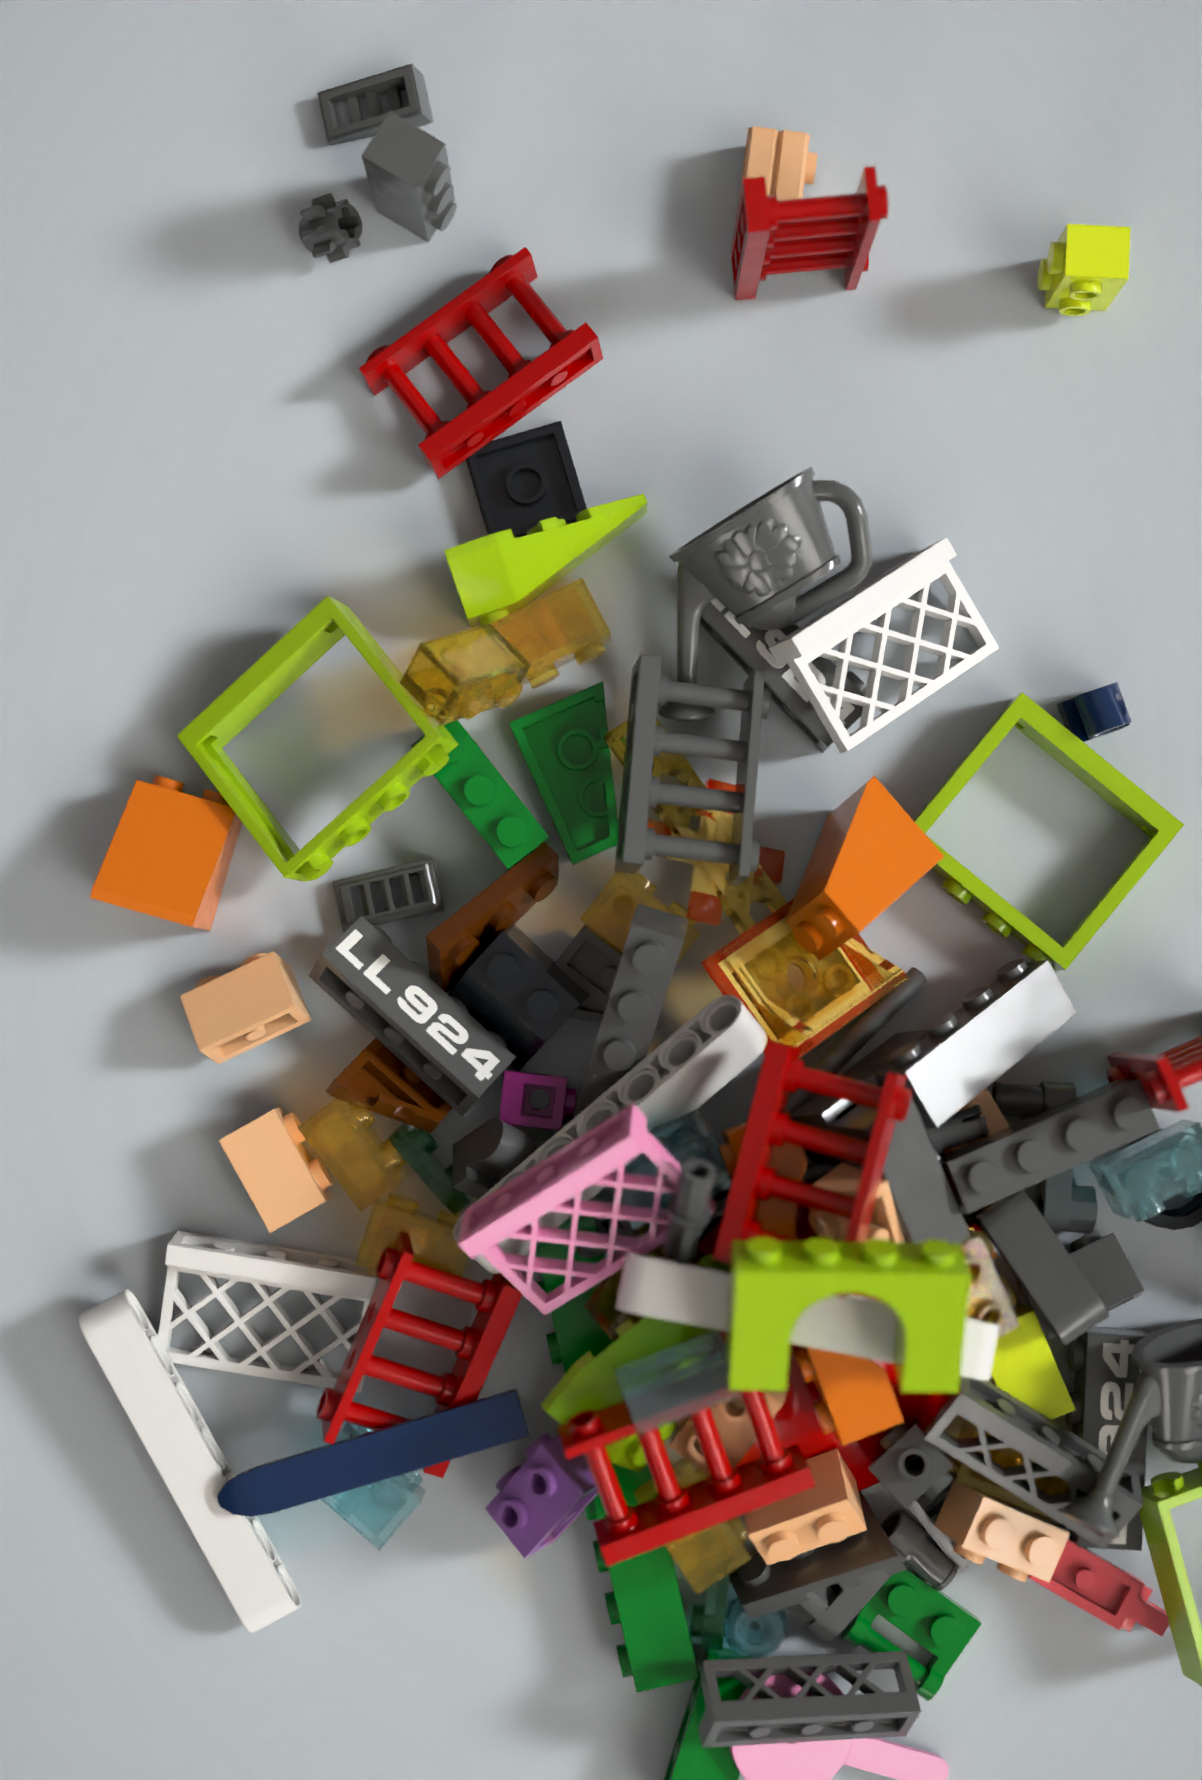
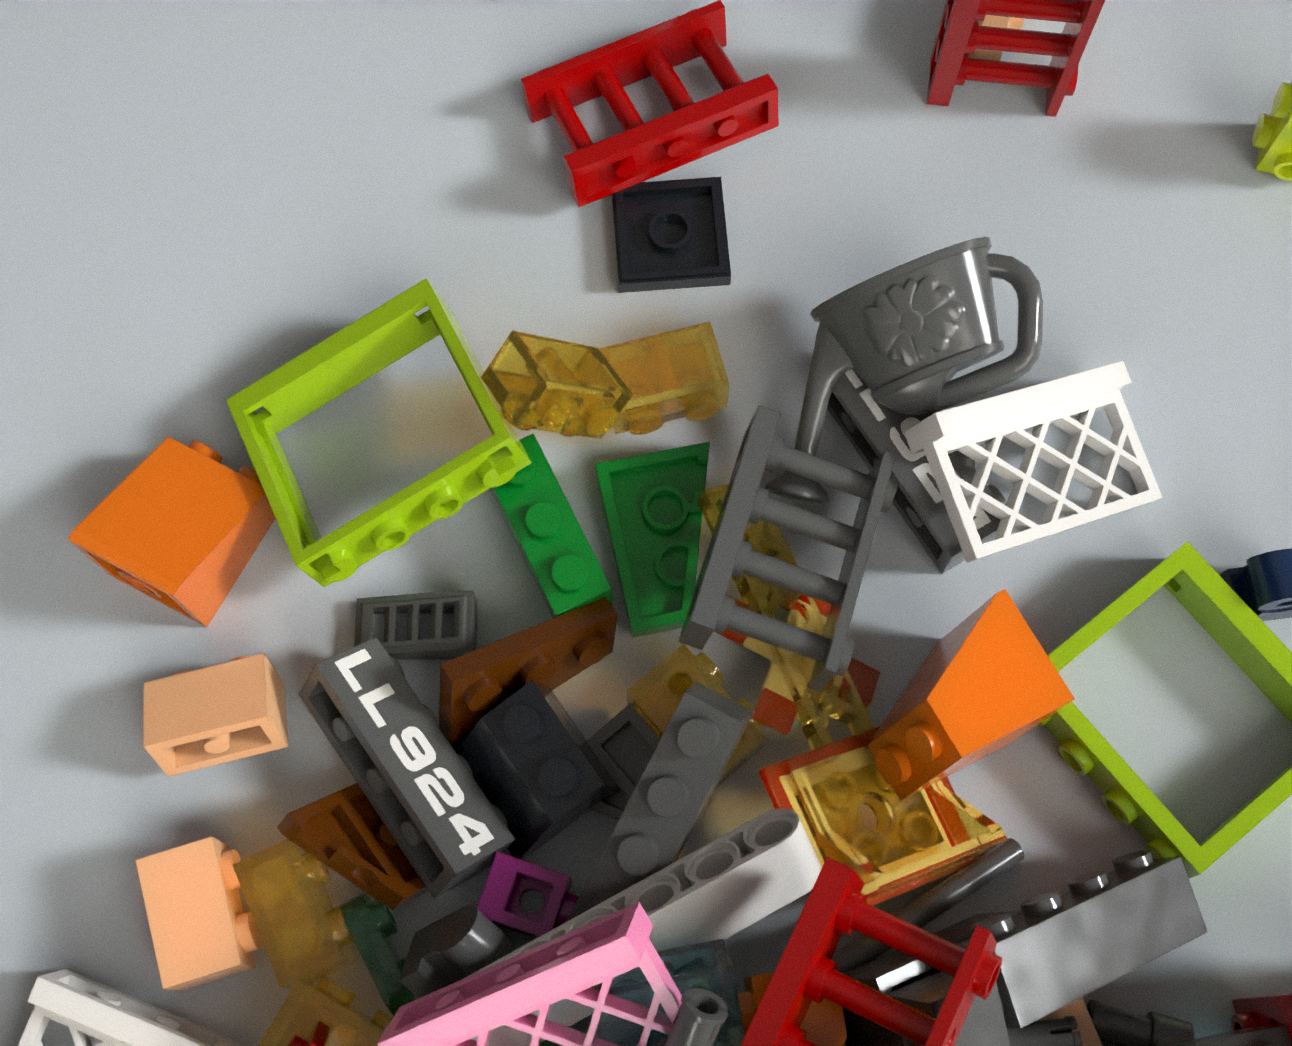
camera: 15 degrees right, 15 degrees down
(508, 572) = (628, 296): lime wedge -> none

